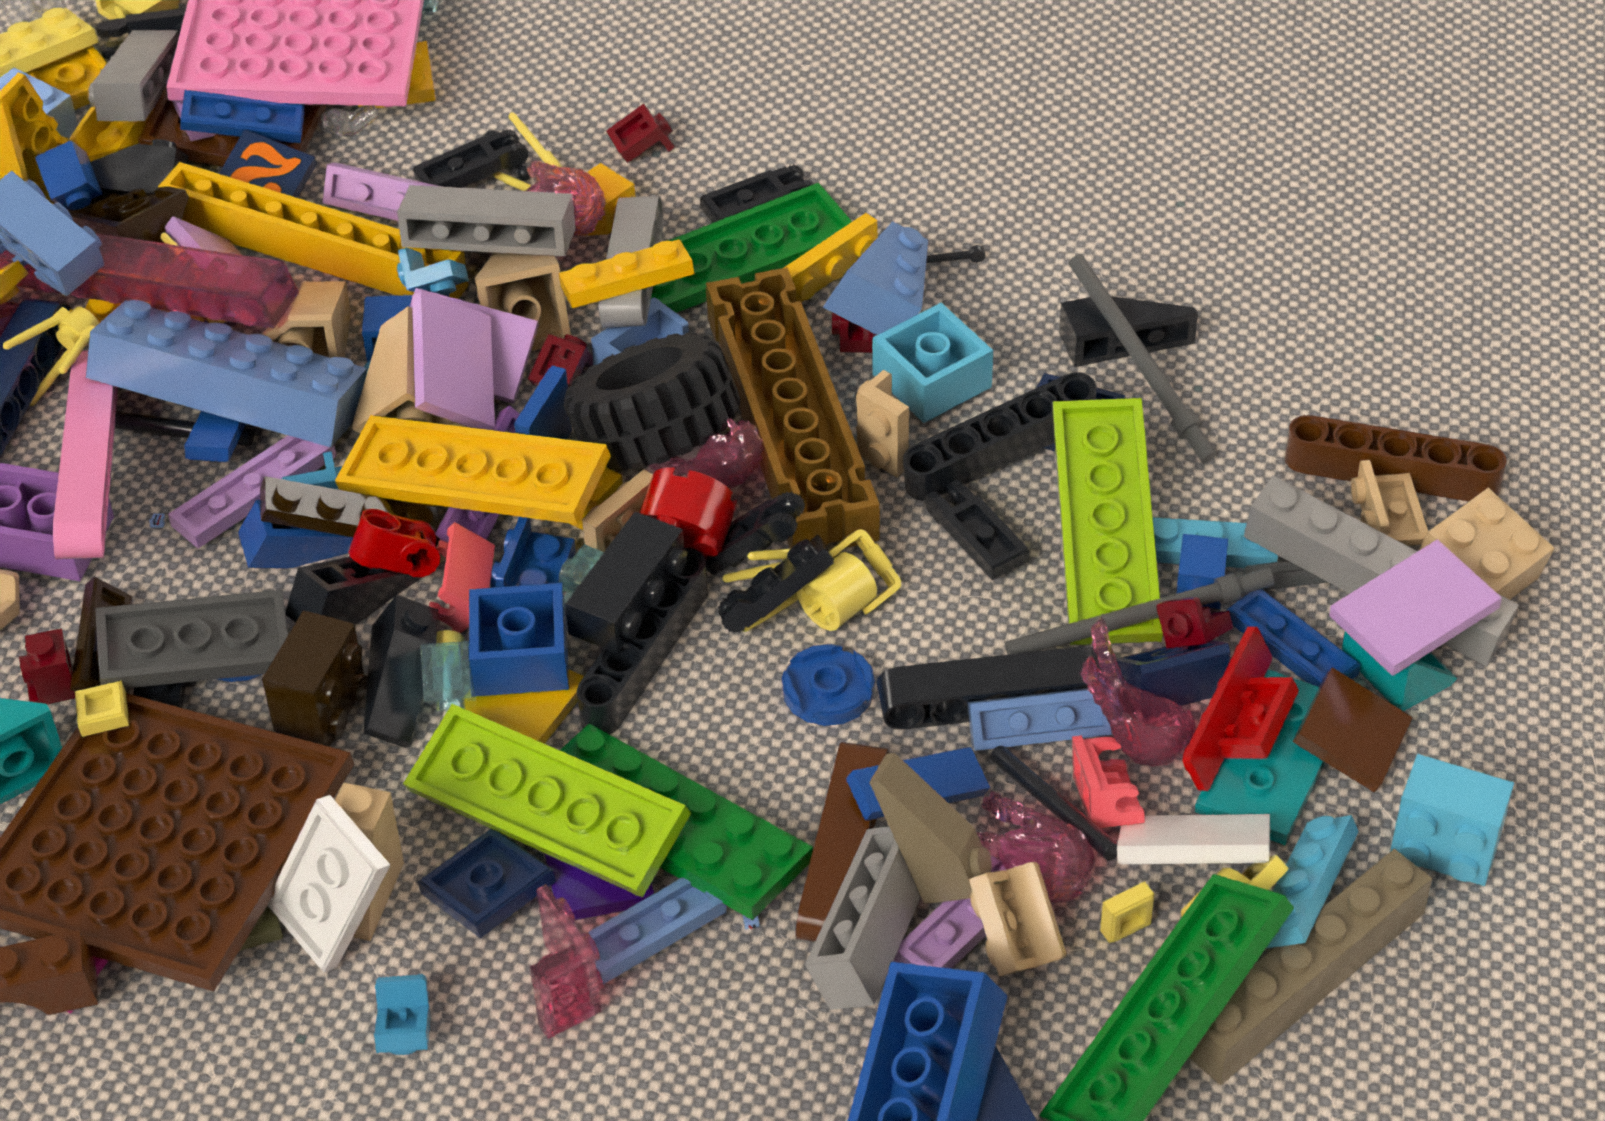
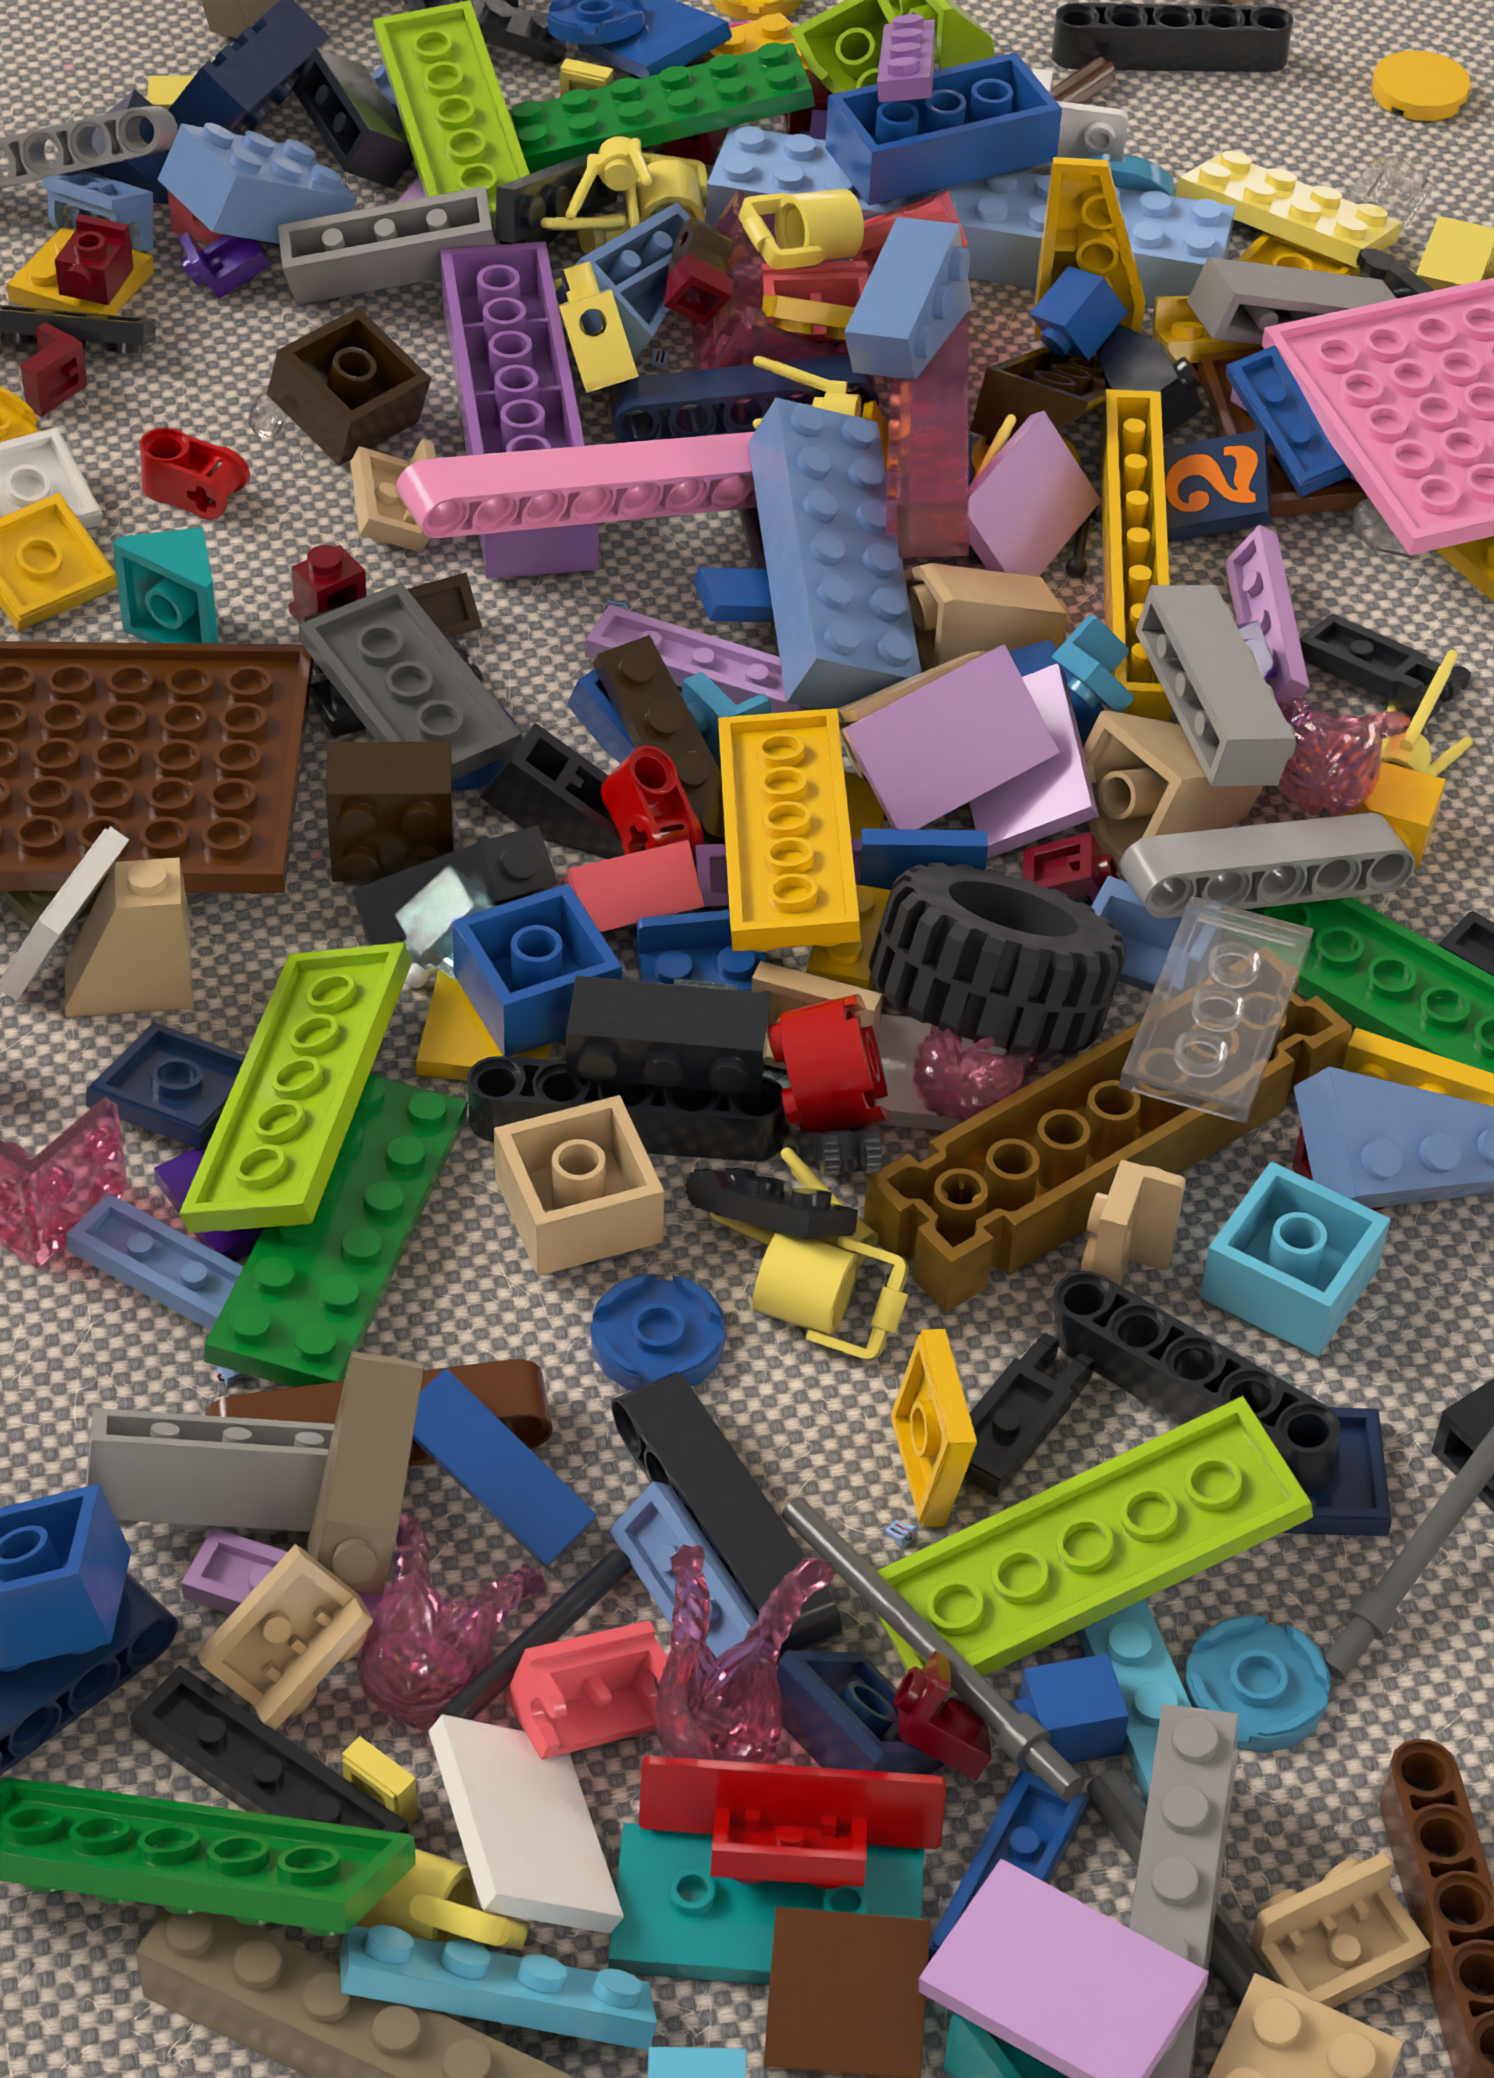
camera: 65 degrees right, 0 degrees up
(101, 708) = (271, 649): light yellow tile -> none
(626, 273) = (1196, 847): yellow plate -> none
(706, 677) = (579, 1185): none -> tan brick
(748, 316) = (1216, 1009): none -> clear tile
(989, 558) = (933, 1428): none -> yellow tile
(1032, 615) = (901, 1533): none -> light blue piece
(1087, 973) = (250, 1759): none -> black plate
(1204, 490) = (1263, 1675): none -> dark azure tile

